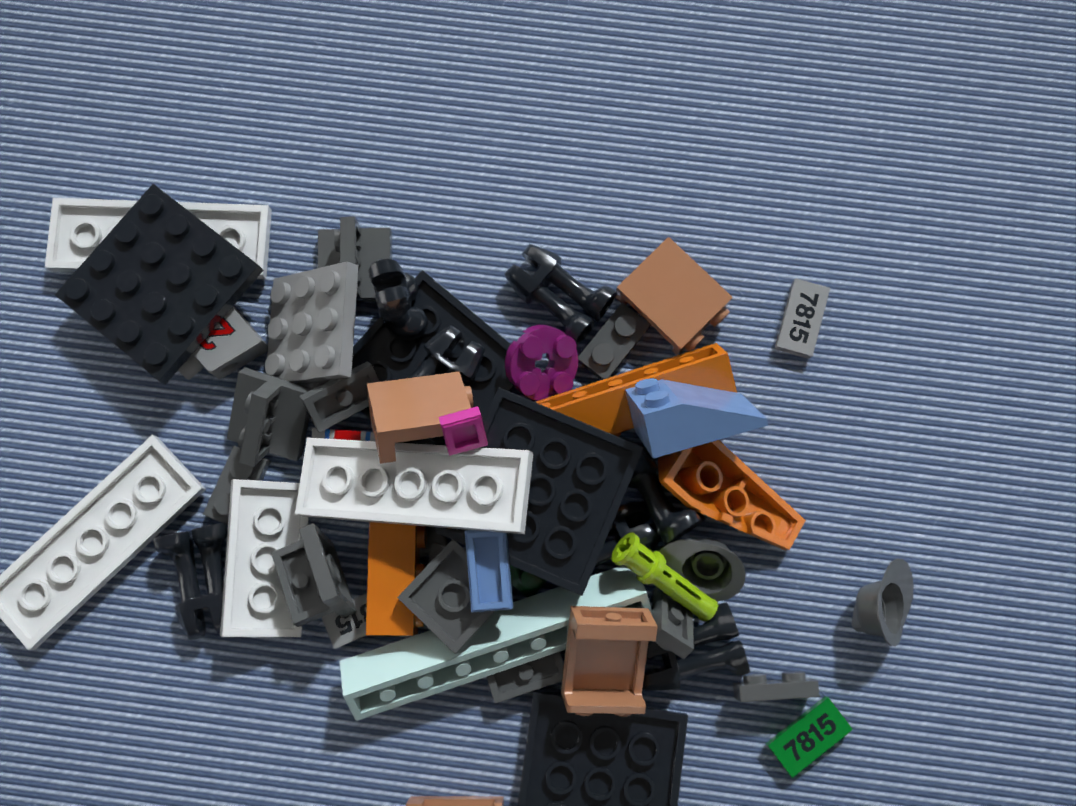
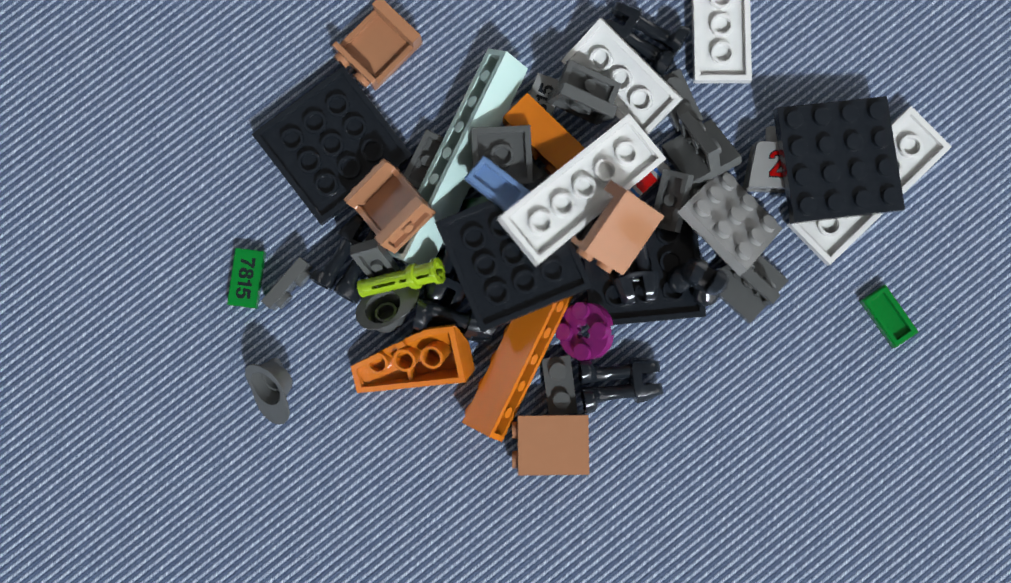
camera: 130 degrees right, 5 degrees up
(268, 117) = (888, 316): none -> green tile
(463, 430) = (584, 239): dark pink tile -> none
(683, 415) = (474, 378): medium blue slope -> none
(802, 318) = (468, 508): light grey tile -> none

